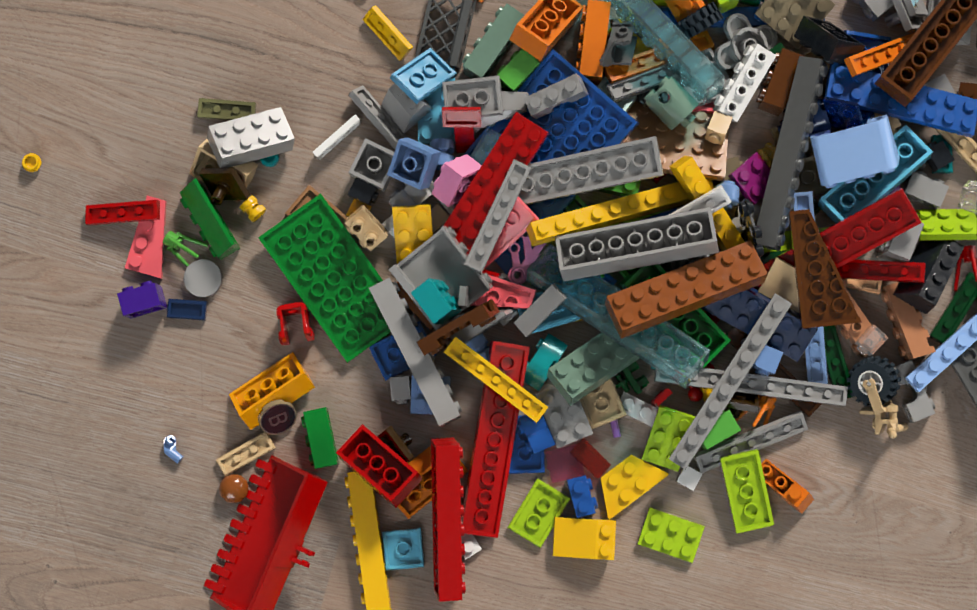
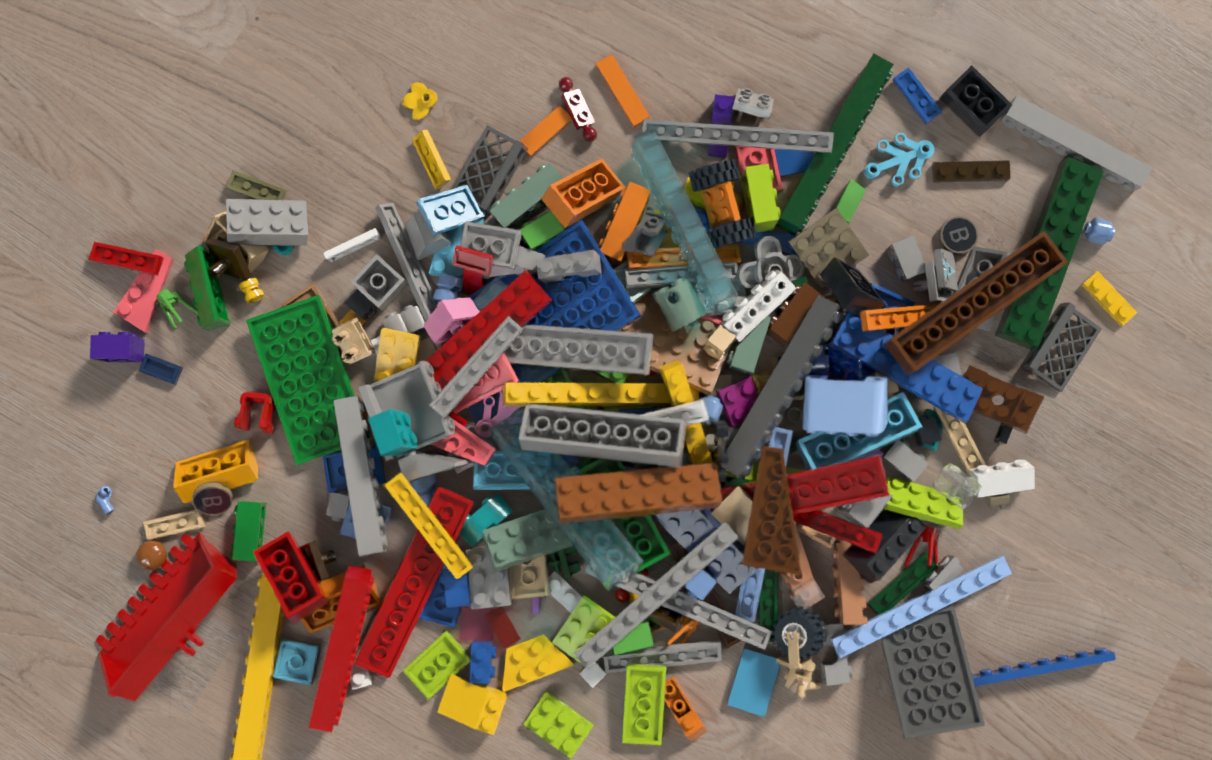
camera: 15 degrees right, 0 degrees up
(31, 162) = (57, 186): yellow plate -> none
(203, 278) = (184, 343): light grey tile -> none
(414, 163) = (414, 291): medium blue brick -> none
(463, 295) = (422, 434): light grey tile -> none
(480, 316) = (426, 461): reddish brown piece -> none
(540, 310) = (492, 470): light grey tile -> none
(660, 397) = (587, 588): red tile -> none
(747, 131) = (746, 354): none -> sand green slope
(843, 441) = (753, 682): none -> dark azure tile

